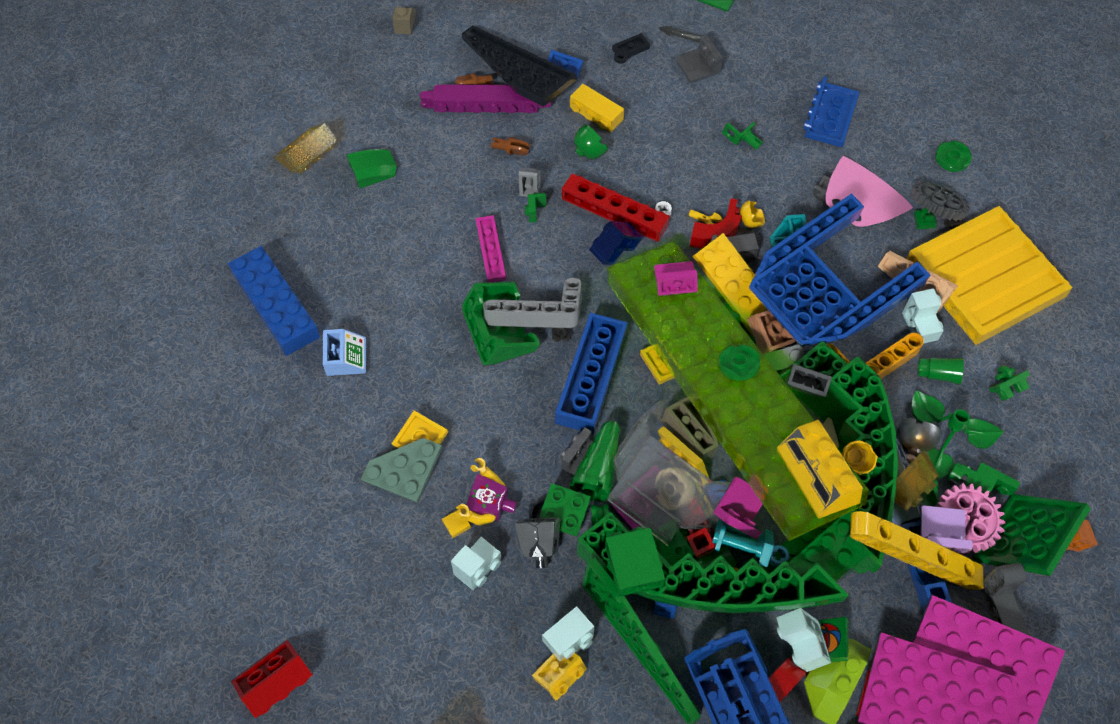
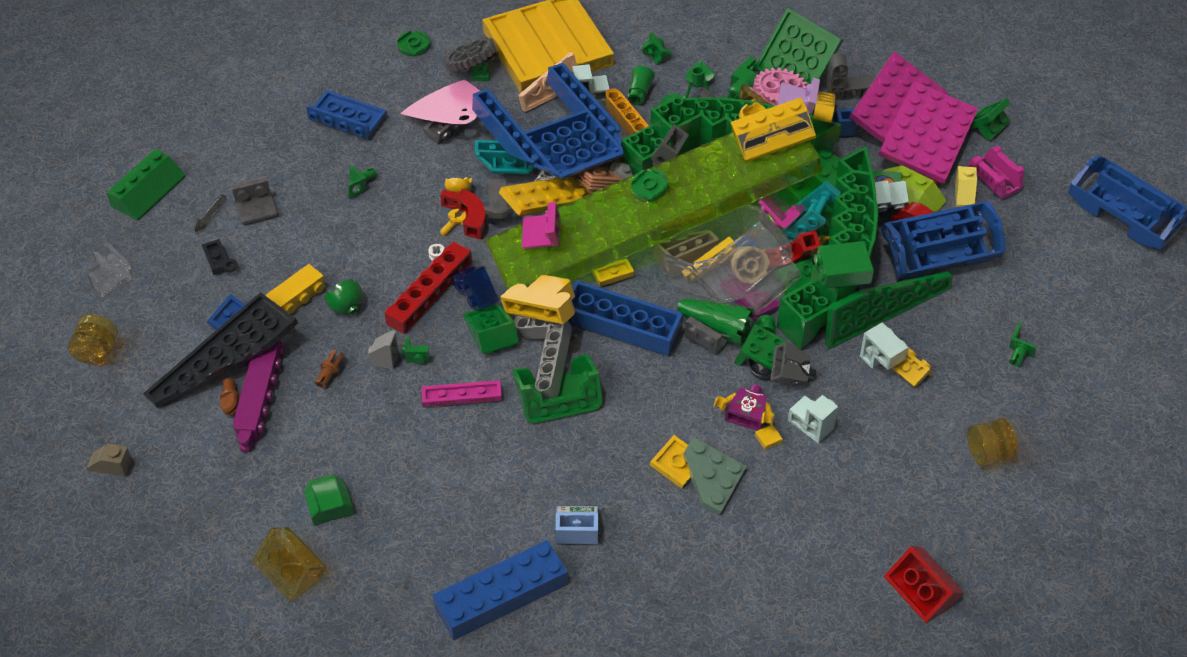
camera: 85 degrees left, 10 degrees down
(569, 261) = (491, 328): none -> green slope
(592, 293) = (545, 299): none -> yellow brick

